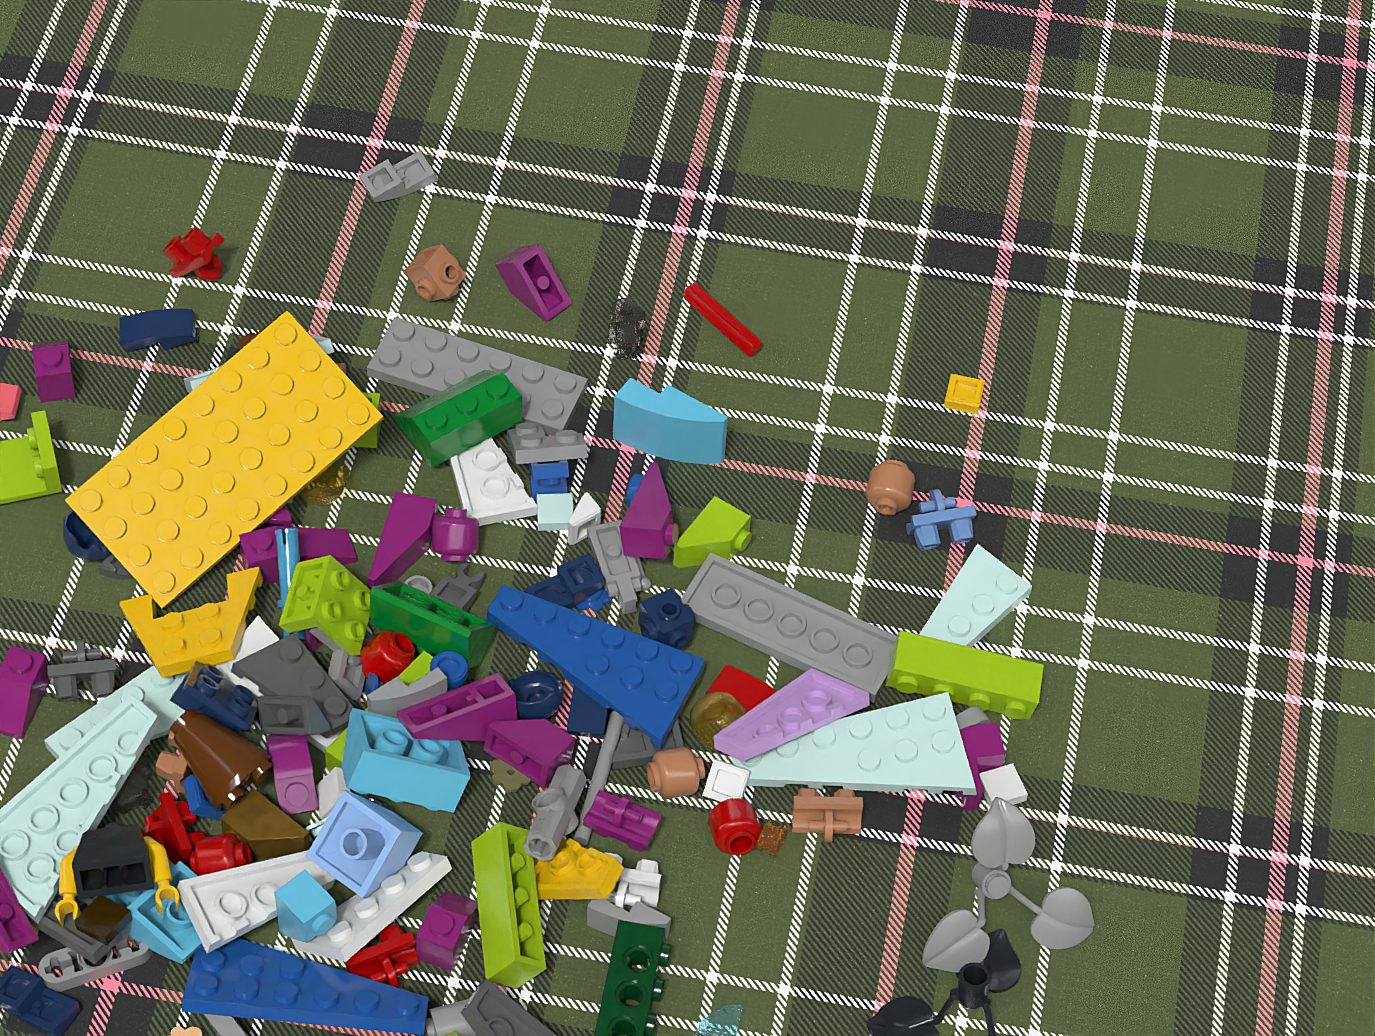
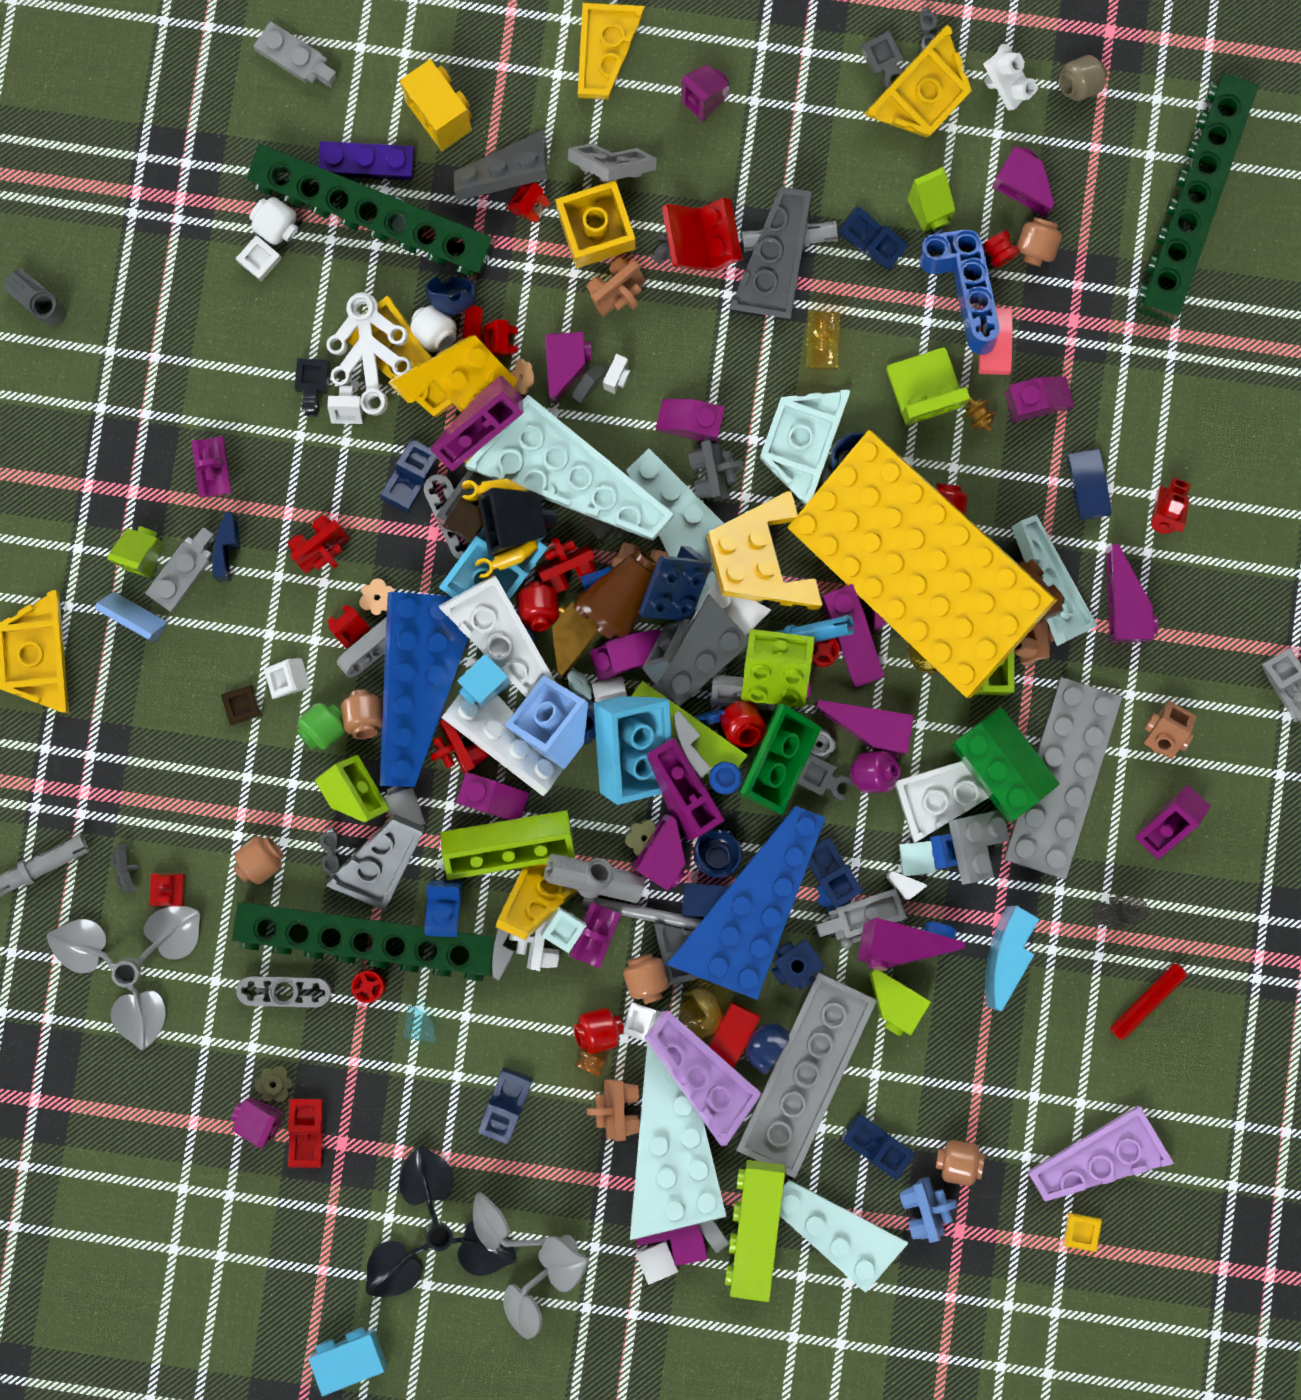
camera: 90 degrees right, 30 degrees up
(62, 587) = (802, 439): none -> light aqua wing
(63, 418) = (979, 414): none -> pearl gold wheel
(306, 297) = (1128, 605): none -> magenta slope
(578, 977) = (443, 908): none -> blue slope
(614, 840) = (563, 929): none -> light aqua plate
(759, 653) = (766, 1046): none -> dark blue hair
(818, 935) = (505, 1105): none -> dark blue slope
(872, 568) = (877, 1146): none -> dark blue slope
(880, 360) = (1107, 1154): none -> lavender wing

